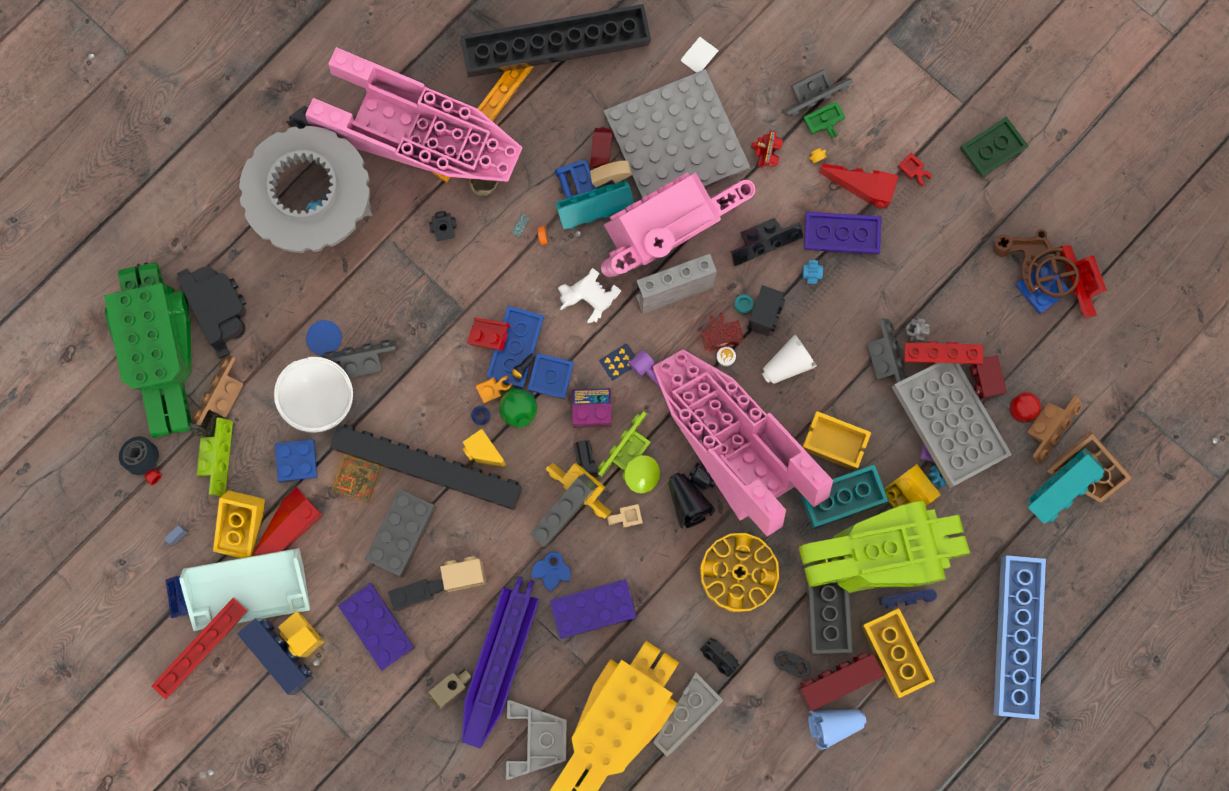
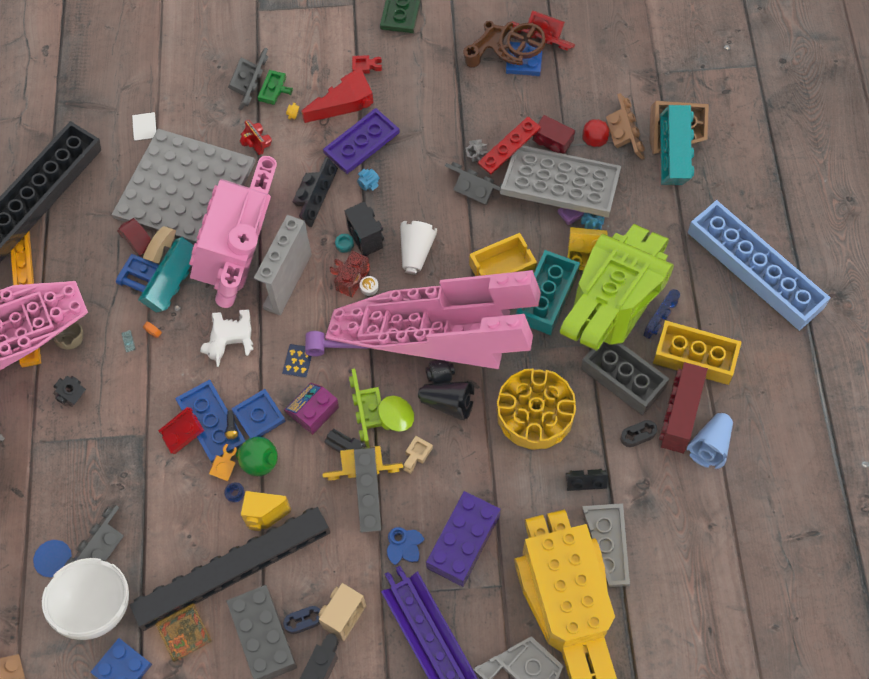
camera: 45 degrees left, 15 degrees down
(439, 546) = (301, 615): none -> dark blue beam

